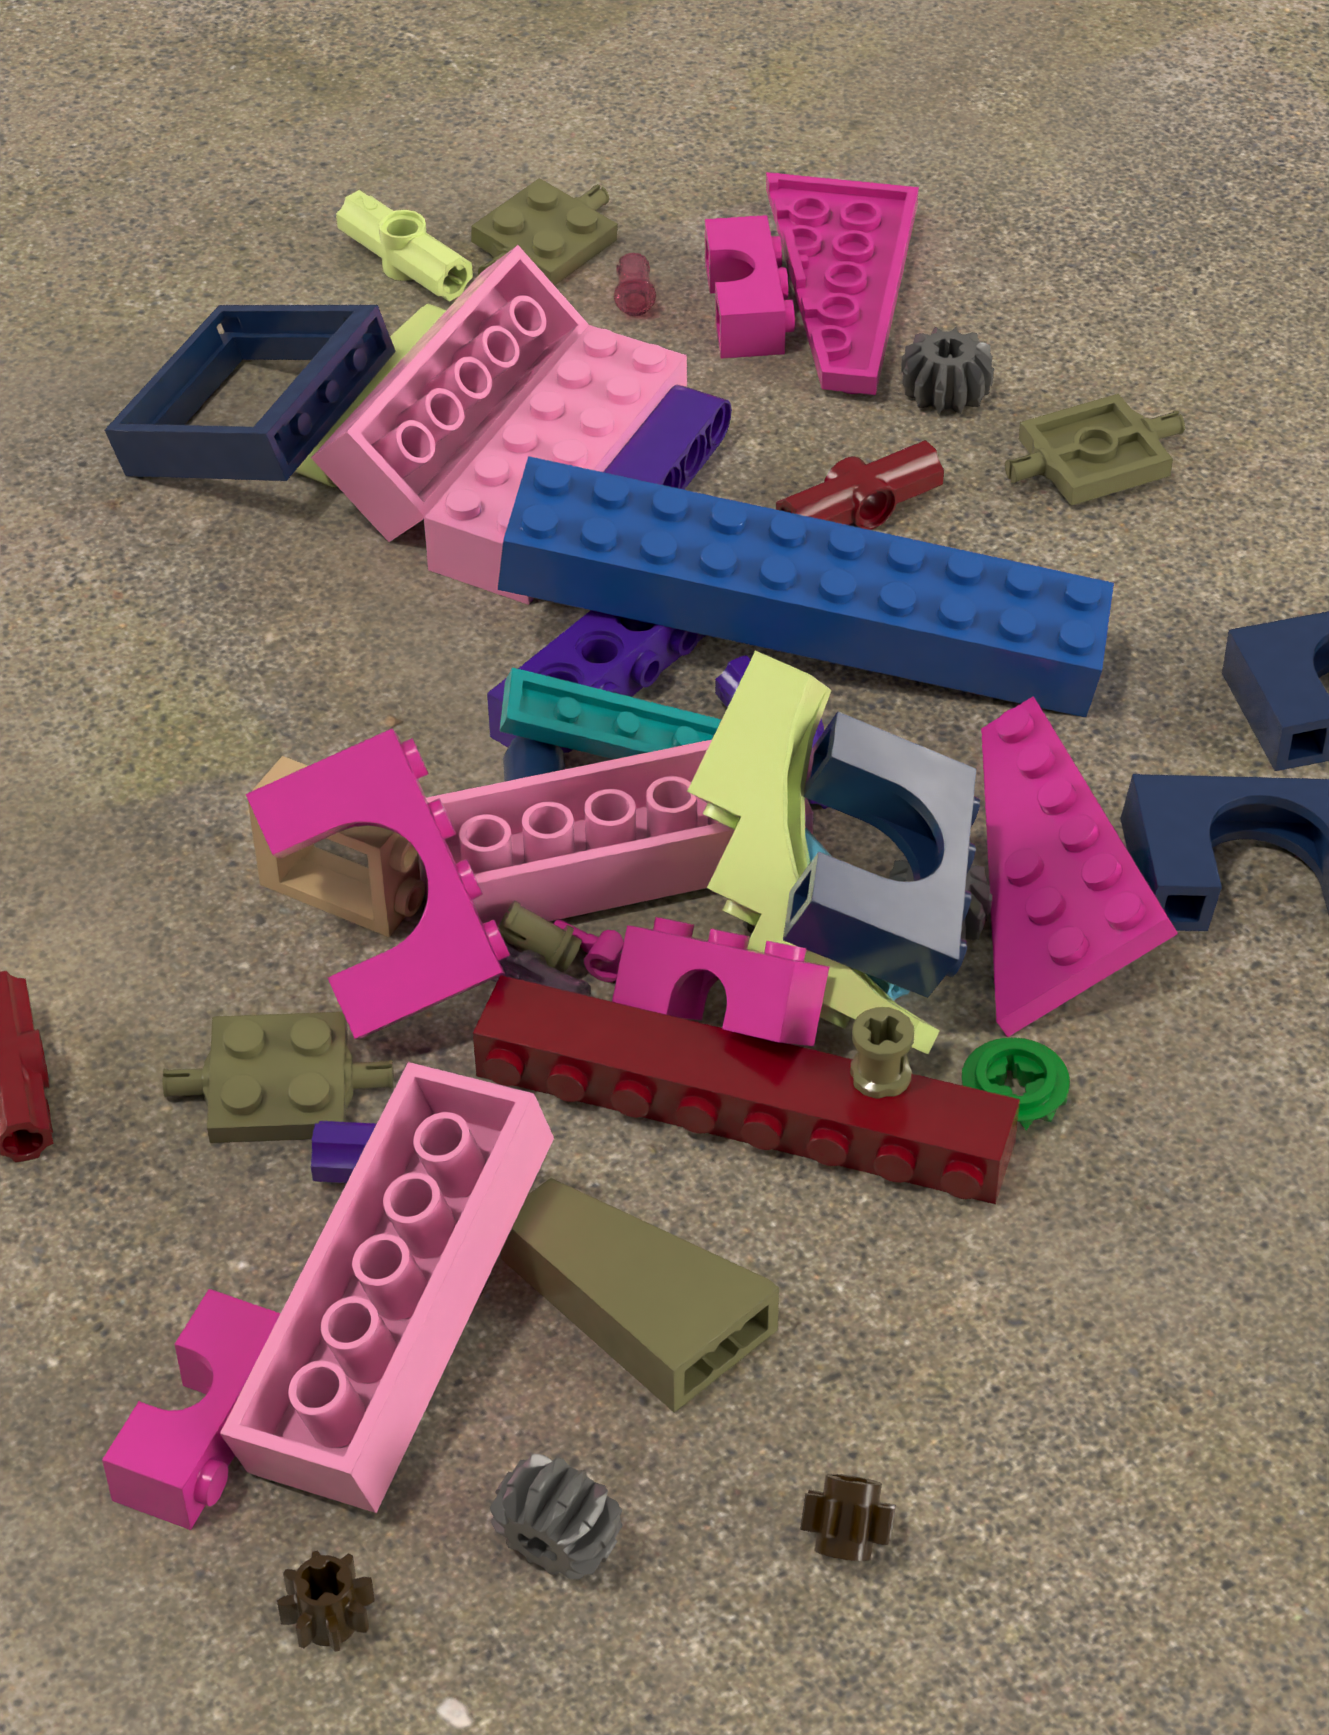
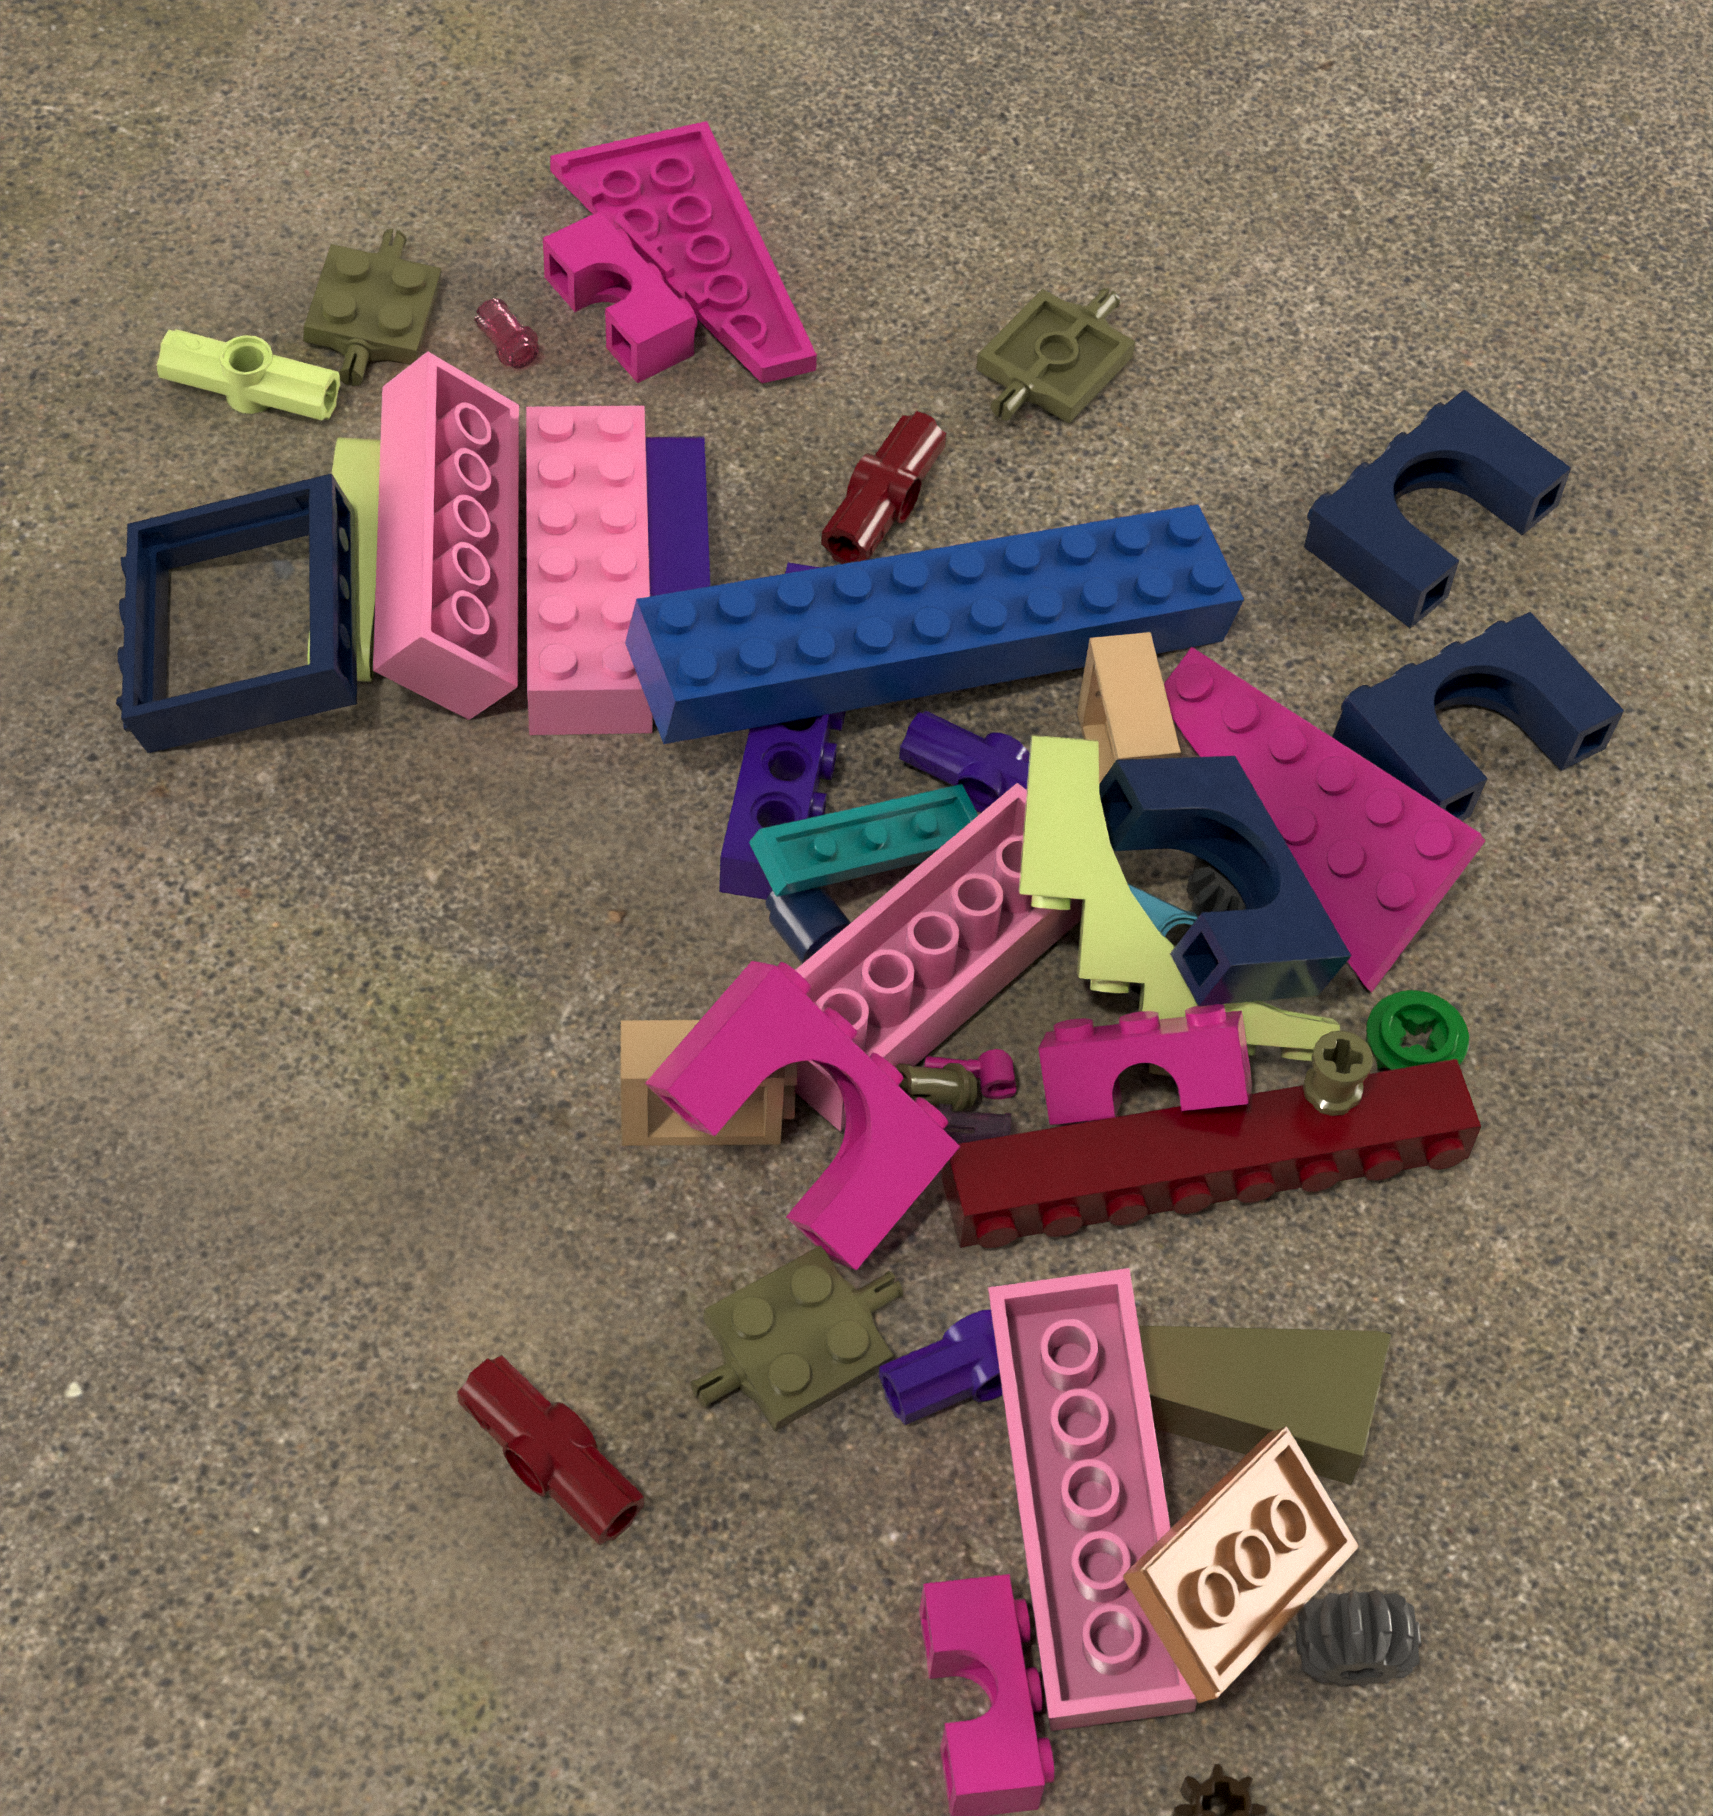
camera: 35 degrees left, 10 degrees up
(481, 1392) = (1241, 1564): none -> tile
(848, 1517) = (1572, 1512): dark brown gear -> none
(928, 695) = (1126, 701): none -> tan window
(947, 370) = (871, 320): dark grey gear -> none

